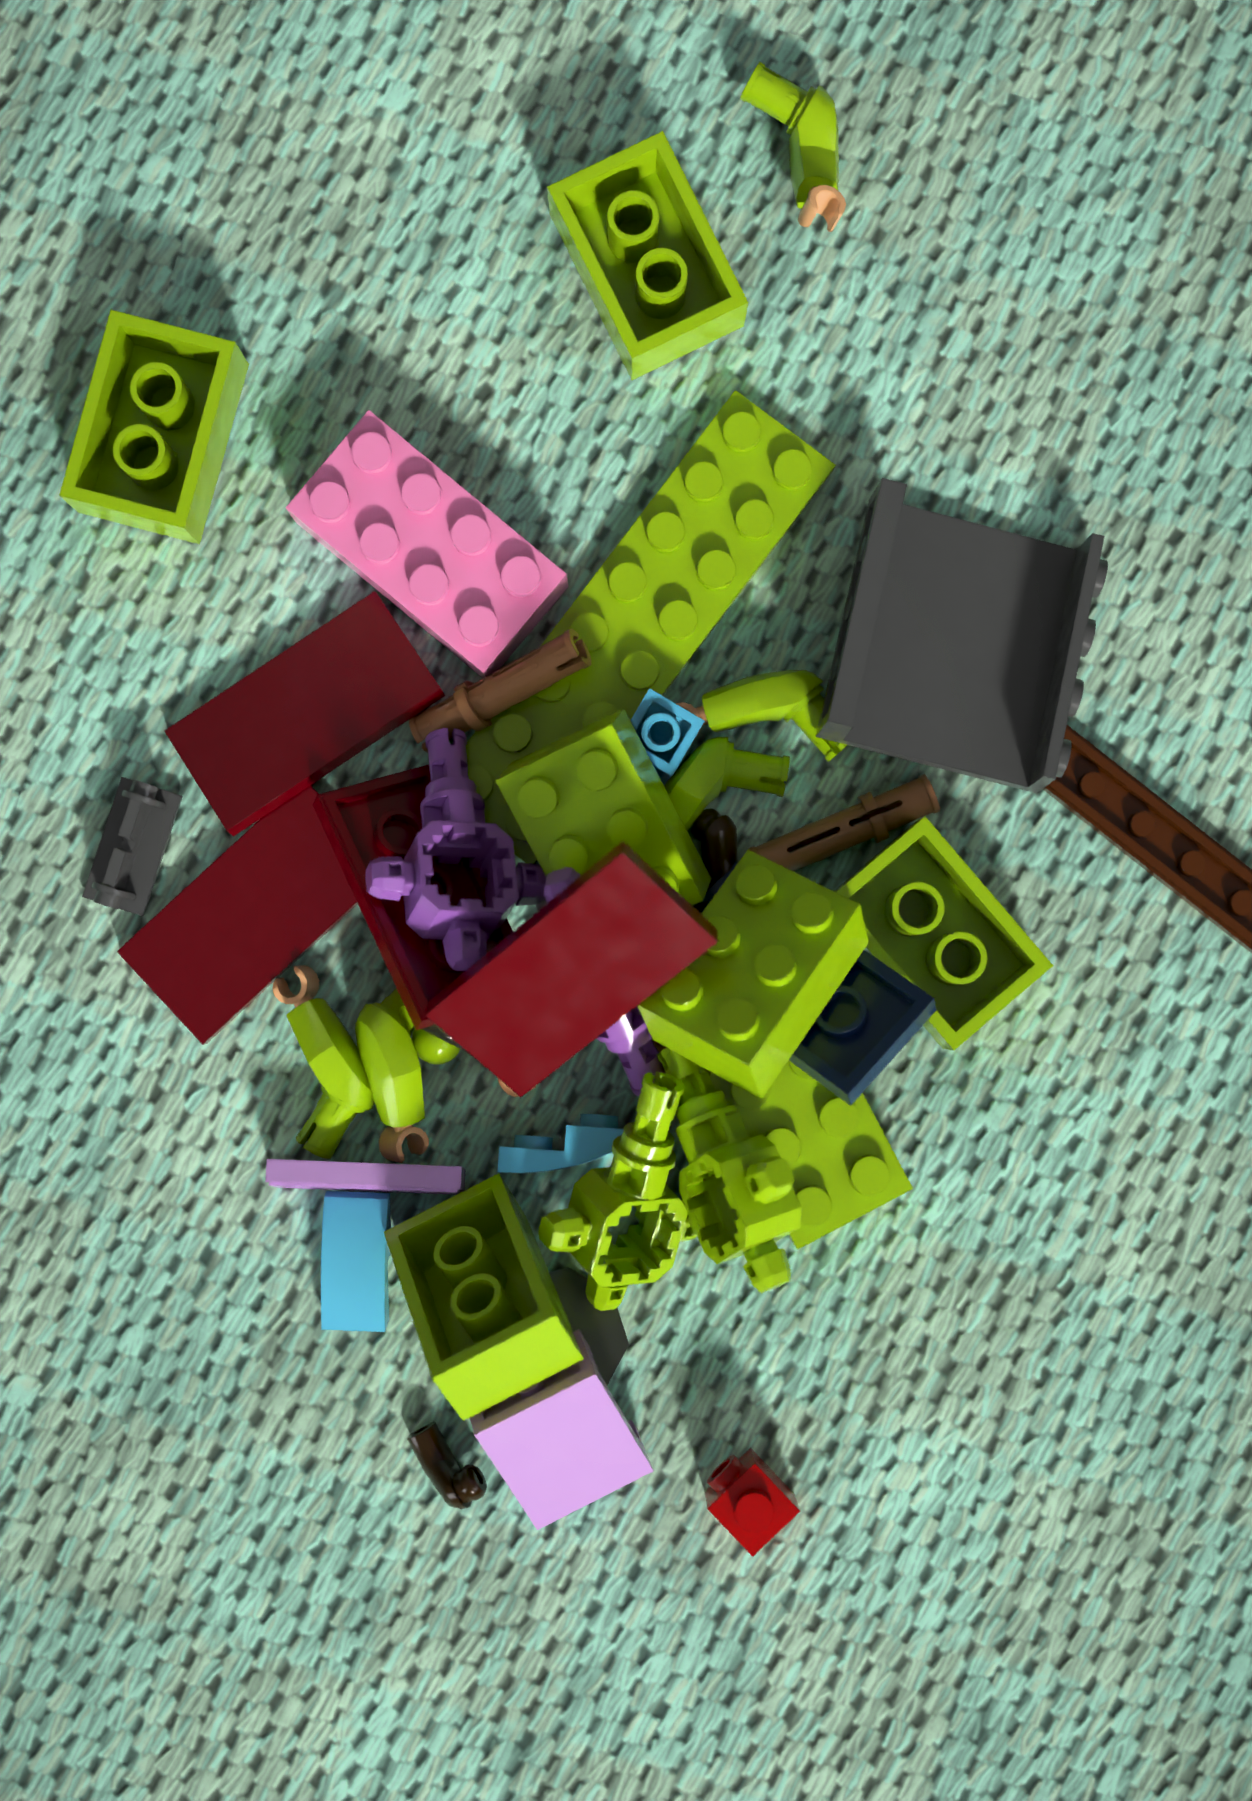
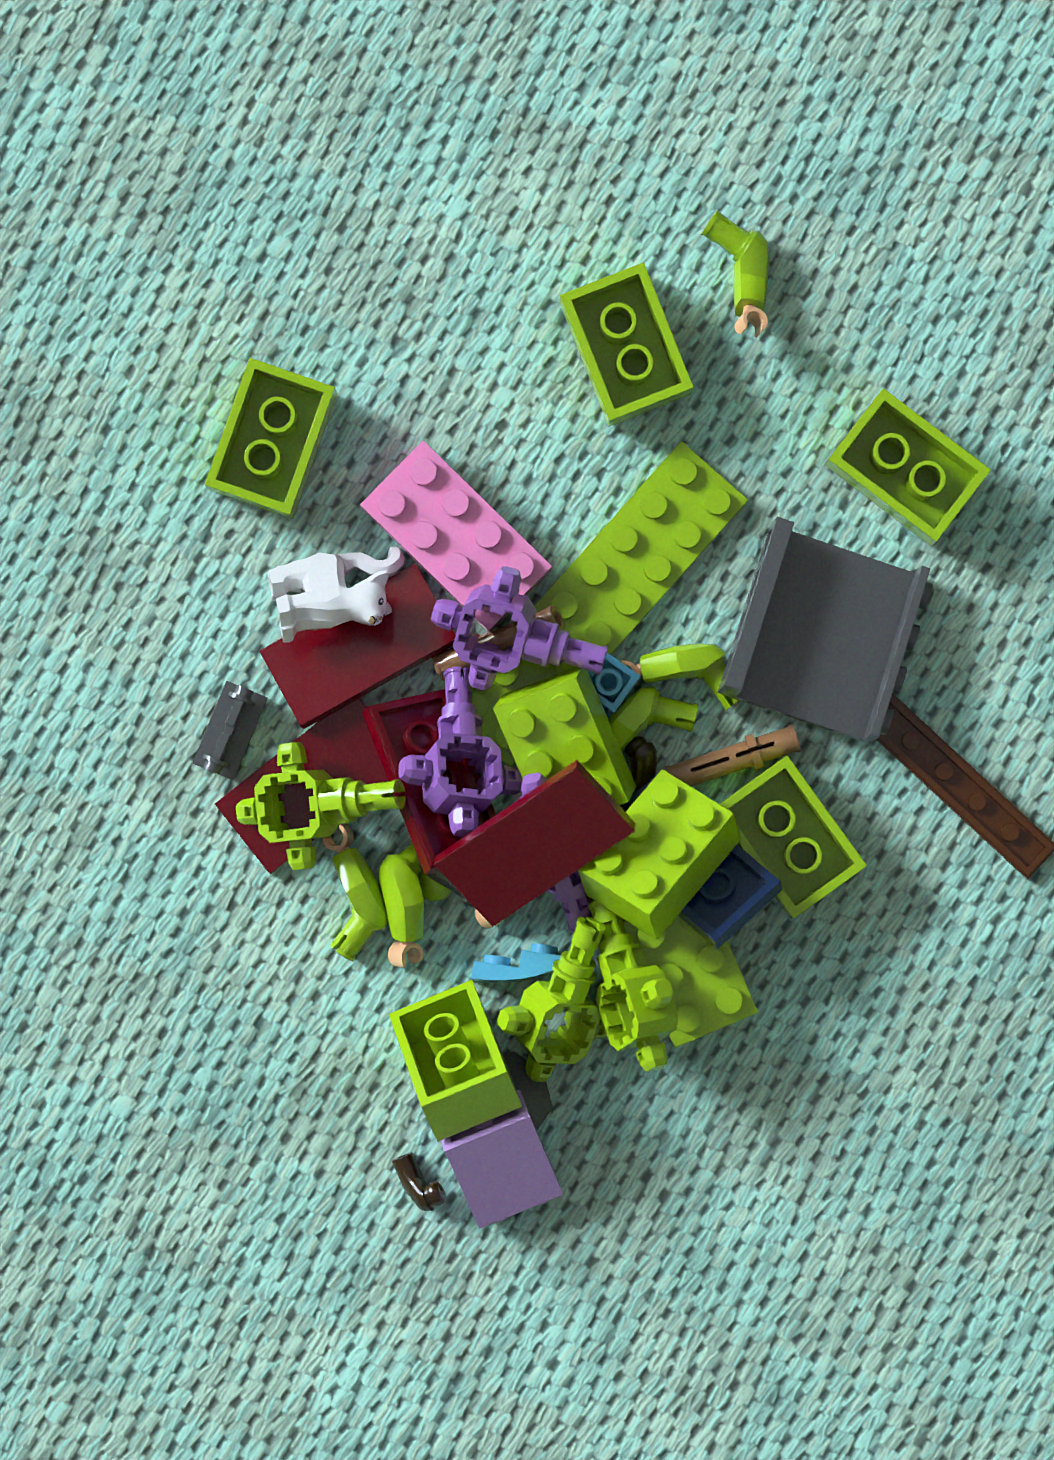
camera: 10 degrees right, 0 degrees up
(236, 638) = (323, 591): none -> white animal
(275, 934) = (332, 800): none -> lime piece
(355, 1261) = (366, 1034): medium azure slope -> none
(365, 1176) = (378, 975): lavender tile -> none
(549, 676) = (534, 641): none -> medium lavender piece
(750, 1500) = (628, 1220): red brick -> none
(1059, 397) = (907, 467): none -> lime brick

